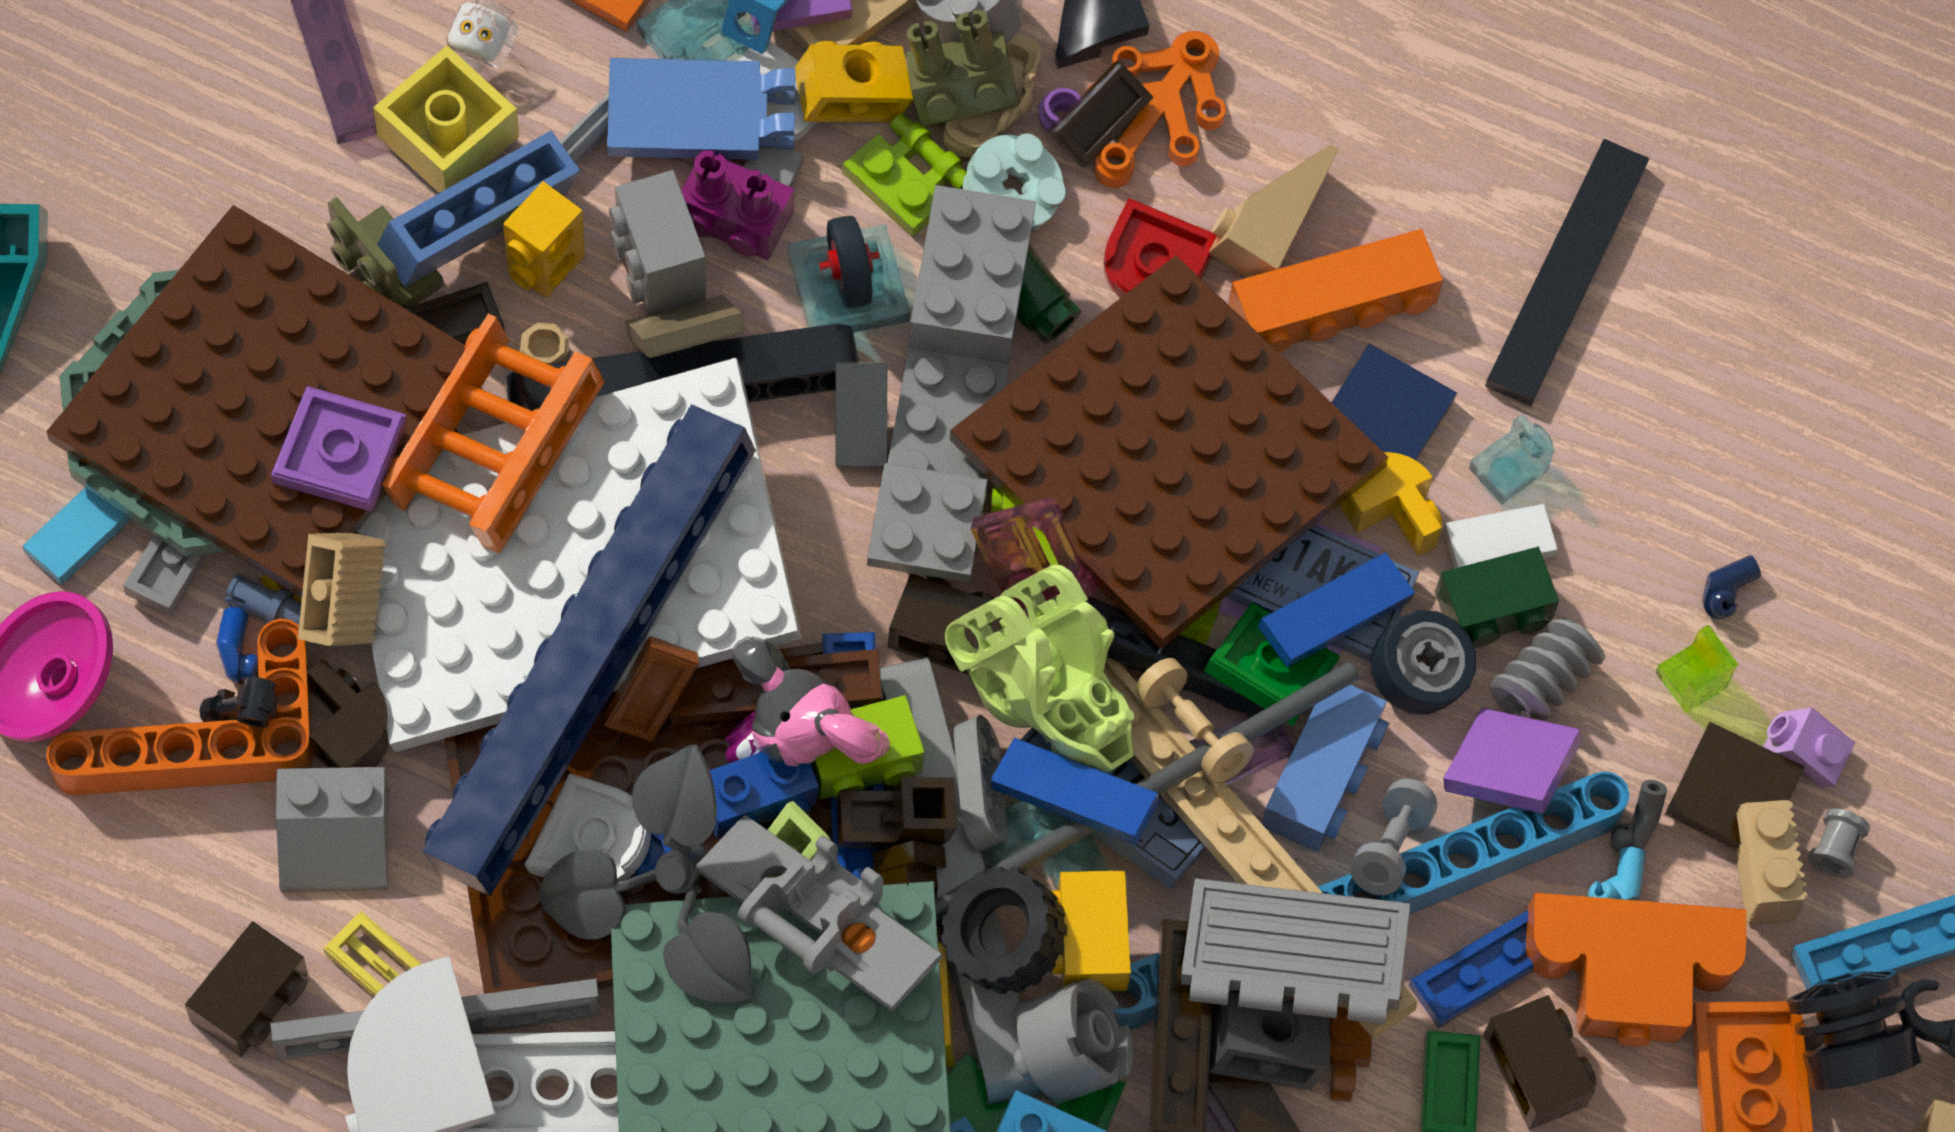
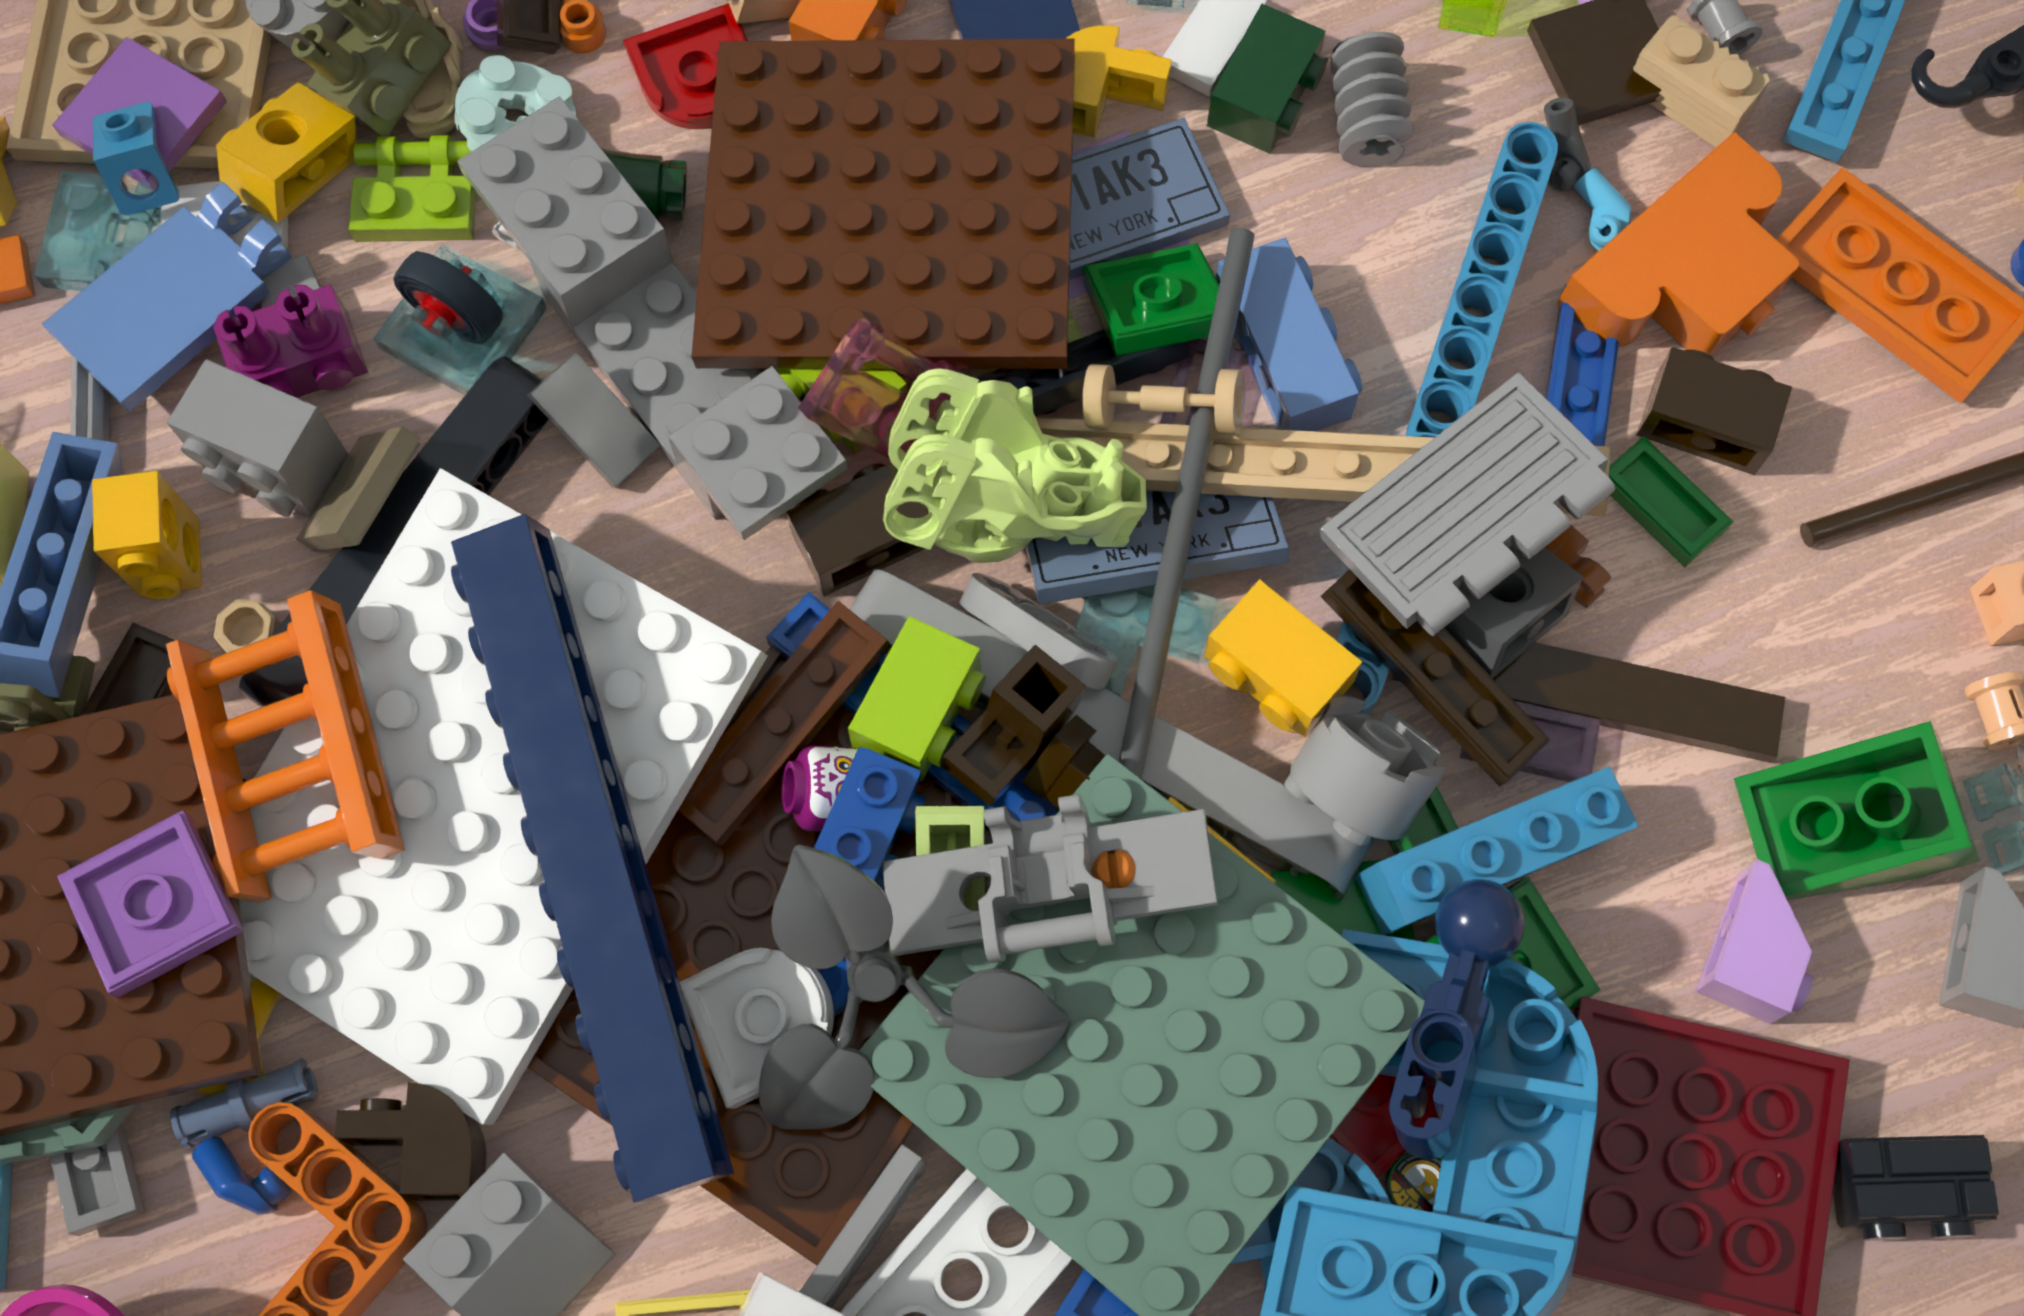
camera: 40 degrees left, 5 degrees up
(251, 707) = (314, 1222): black bar -> none
(341, 589) = (288, 1031): tan brick -> none
(651, 689) = (677, 833): dark orange tile -> none
(817, 711) = (856, 700): hair -> none
(1036, 952) = (1167, 748): black tyre -> none
(1075, 791) = (1136, 555): blue tile -> none
(1336, 609) = (1162, 205): blue tile -> none
(1379, 865) = (1440, 371): light grey wheel -> none
(1413, 684) = (1265, 207): wheel -> none
(1512, 760) = (1429, 191): medium lavender tile -> none
(1854, 1030) = (1925, 142): black wheel -> none

